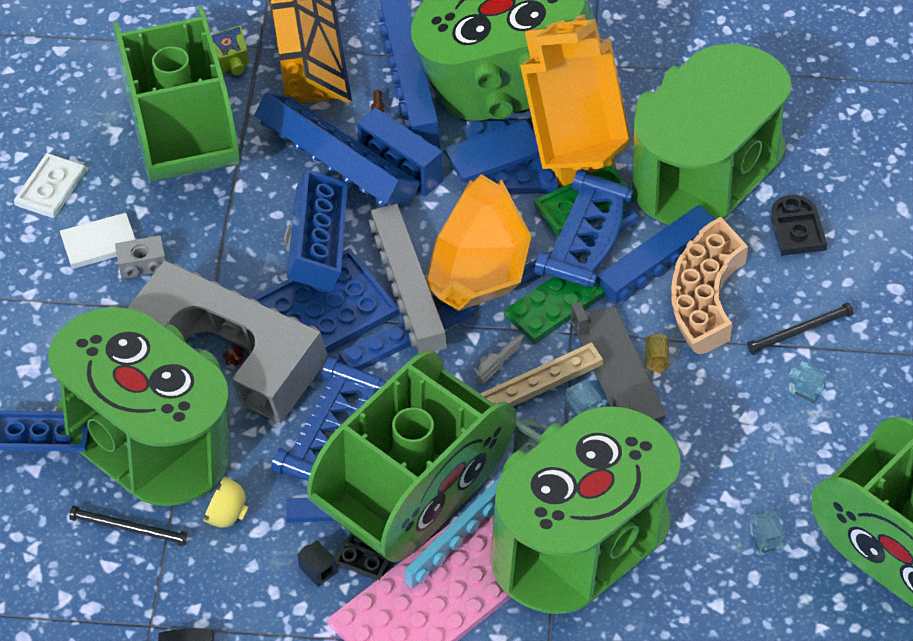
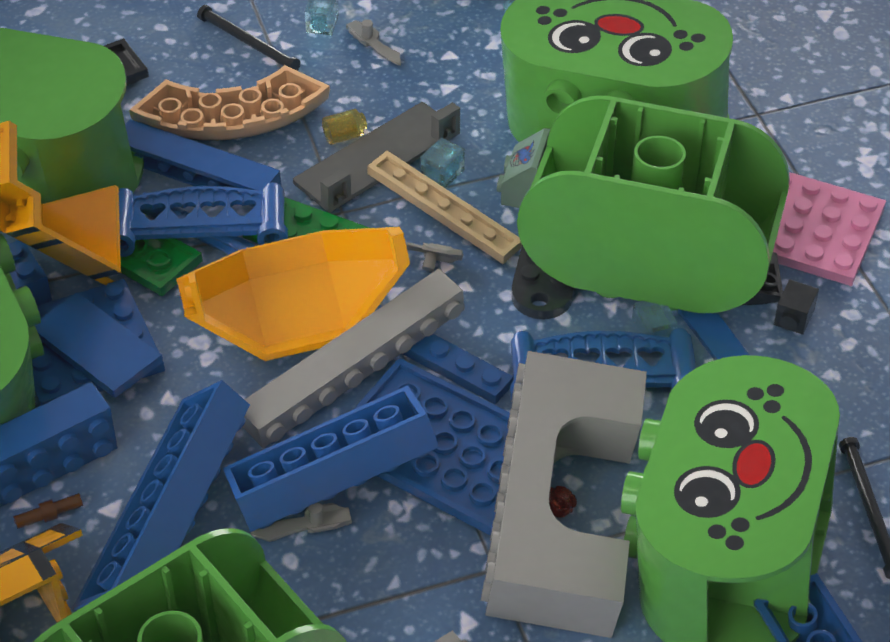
camera: 115 degrees left, 5 degrees down
(402, 148) = (134, 432): blue brick -> none
(770, 409) = (369, 36): none -> light grey piece

